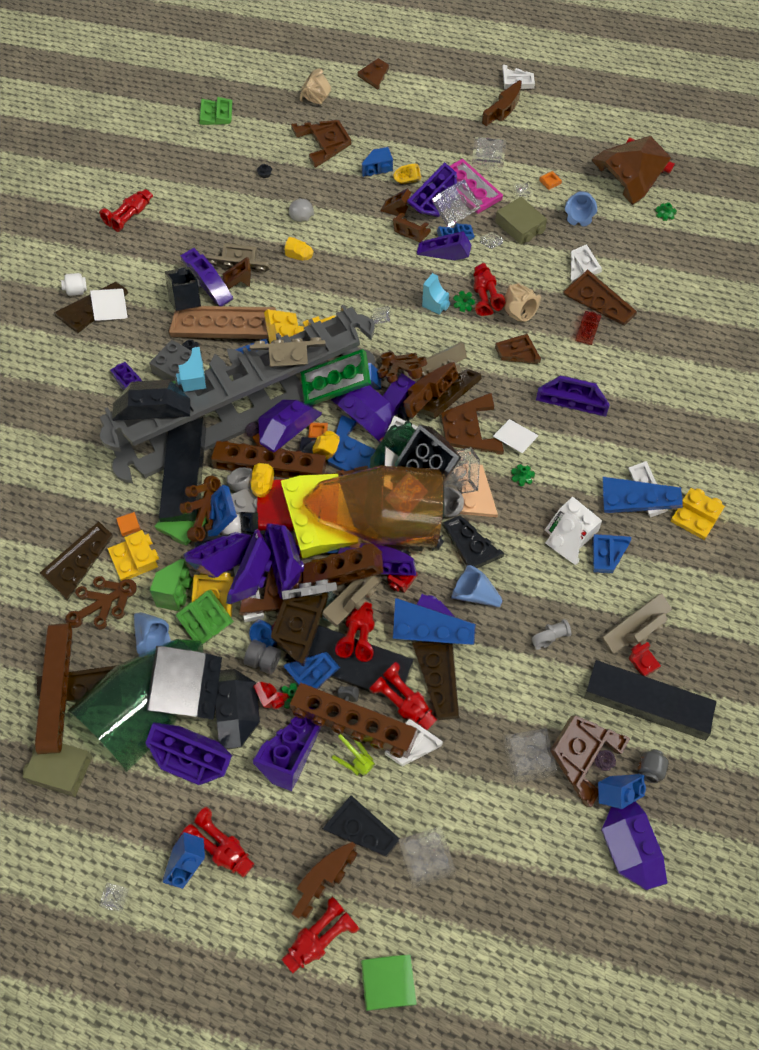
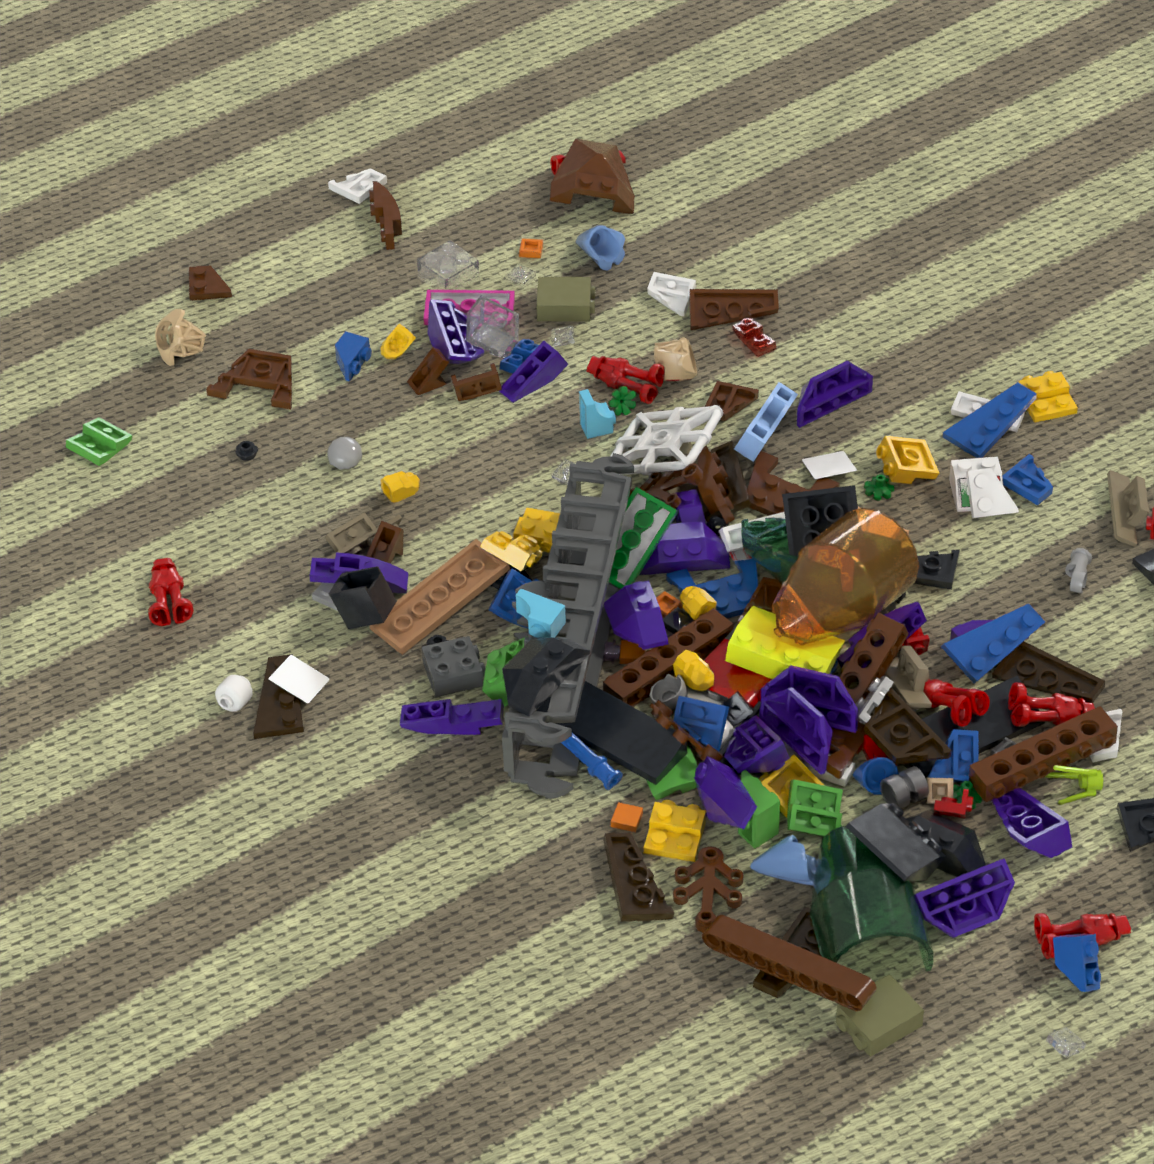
camera: 50 degrees left, 15 degrees down
(153, 481) = (596, 764): none -> blue pin
(159, 557) = (723, 794): none -> dark purple wedge
(279, 678) = (939, 788): none -> tan slope
(288, 353) = (597, 532): dark tan bracket -> none
(441, 339) = (667, 437): none -> white plate
(476, 588) = (977, 591): medium blue hat -> none
(496, 382) = (765, 421): none -> light blue arch
(557, 473) = (906, 459): none -> yellow plate
(665, 211) = (670, 196): green plant -> none

